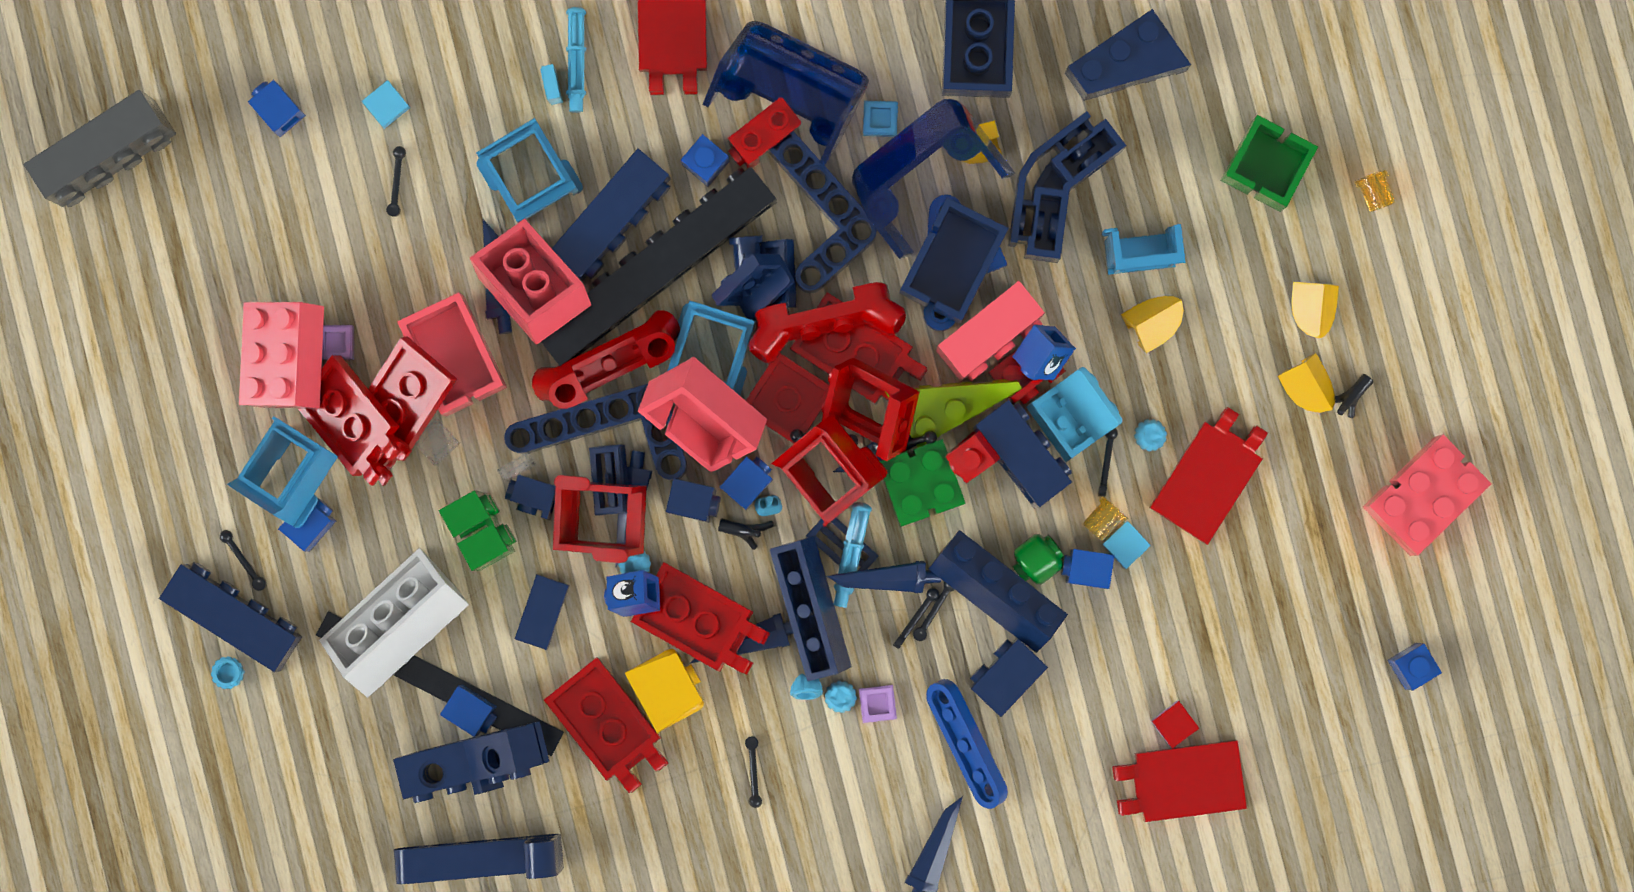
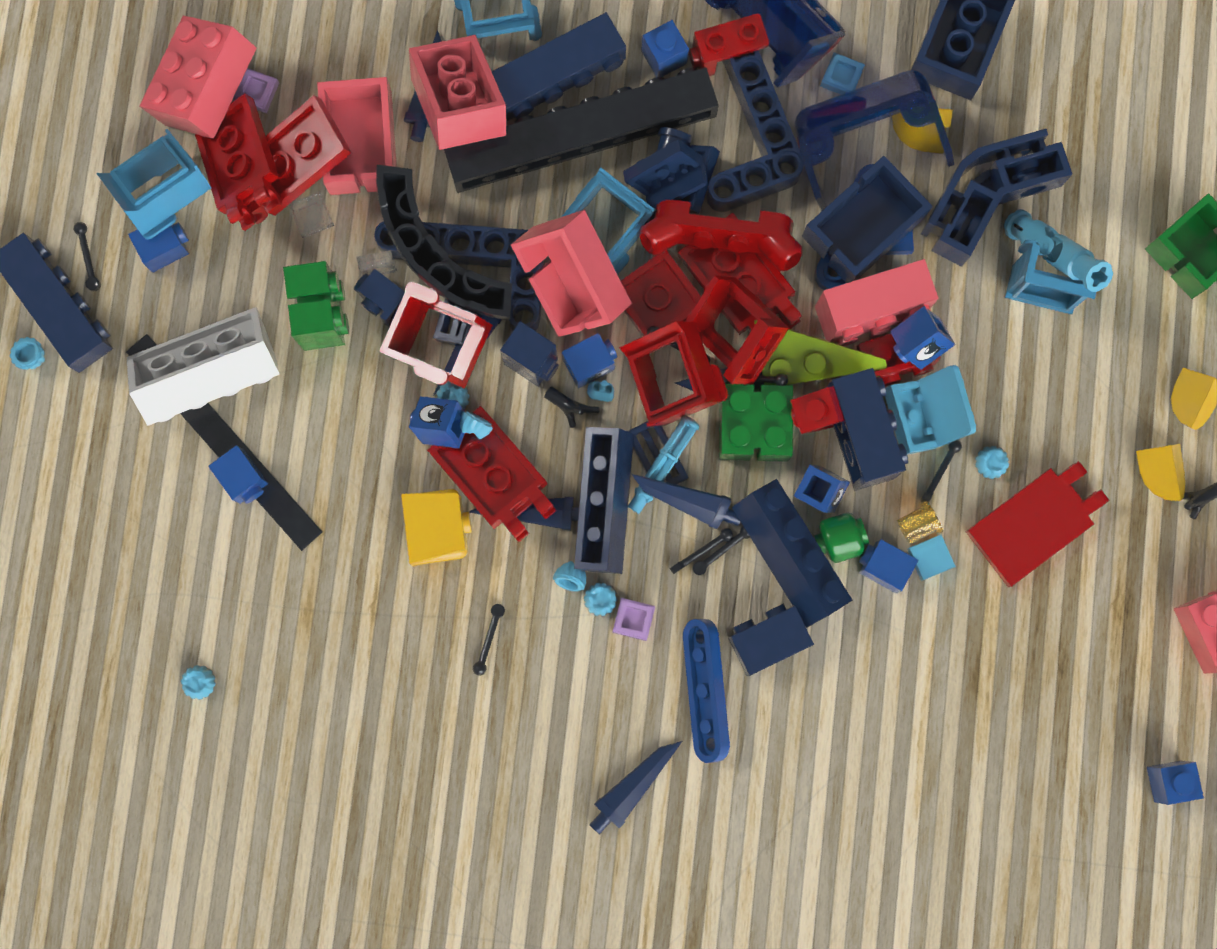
camera: 15 degrees right, 5 degrees down
(479, 760) = (227, 523): dark blue brick -> none
(535, 855) = (191, 621): dark blue beam -> none
(541, 612) = (346, 410): dark blue tile -> none
(564, 450) = (427, 257): none -> black brick
(606, 724) = (365, 539): red tile -> none
(647, 344) = (501, 197): red plate -> none
(666, 583) = (474, 424): none -> medium azure piece
(1003, 522) = (821, 489): none -> blue brick
(1127, 59) = (1098, 102): dark blue wedge -> none
(1137, 224) = (1061, 251): none -> medium azure piece
(1155, 320) = (1036, 355): yellow brick -> none
(1175, 724) = (916, 750): red tile -> none
(1184, 781) = (905, 810): red tile -> none

